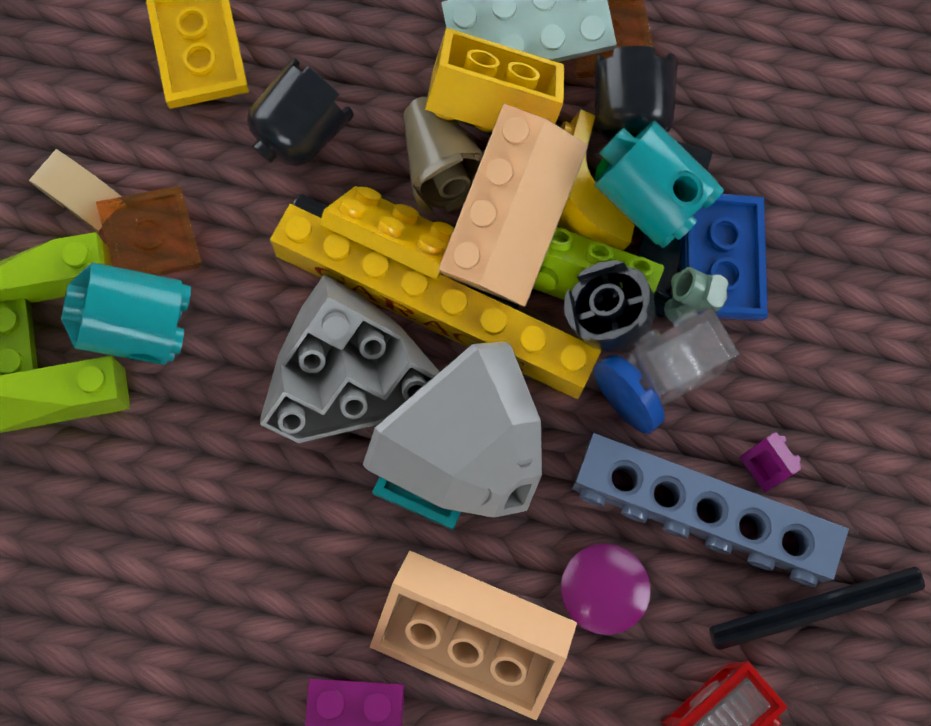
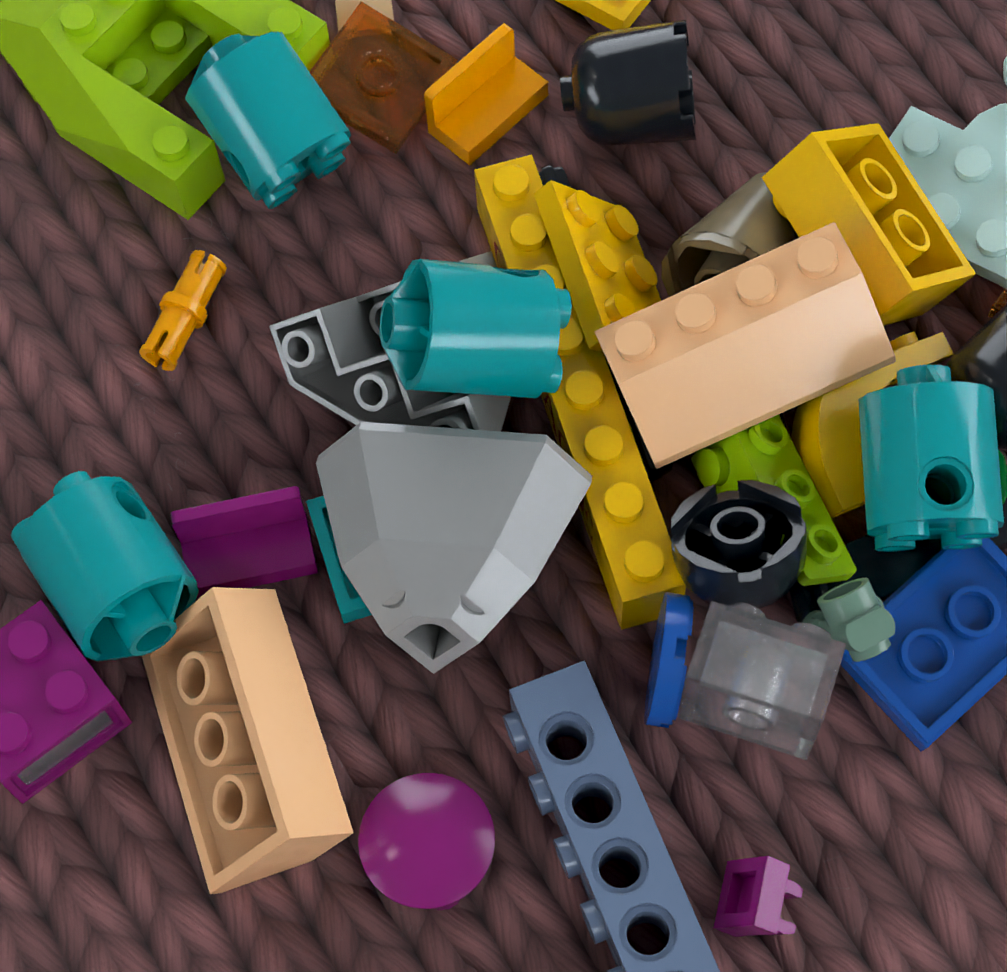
camera: 55 degrees right, 10 degrees down
(190, 459) = (183, 310): none -> light orange pin
(219, 194) = (482, 96): none -> light orange panel
(321, 628) = (106, 567): none -> teal cylinder
(365, 543) = (246, 540): none -> magenta panel
(384, 325) = (475, 329): none -> teal cylinder

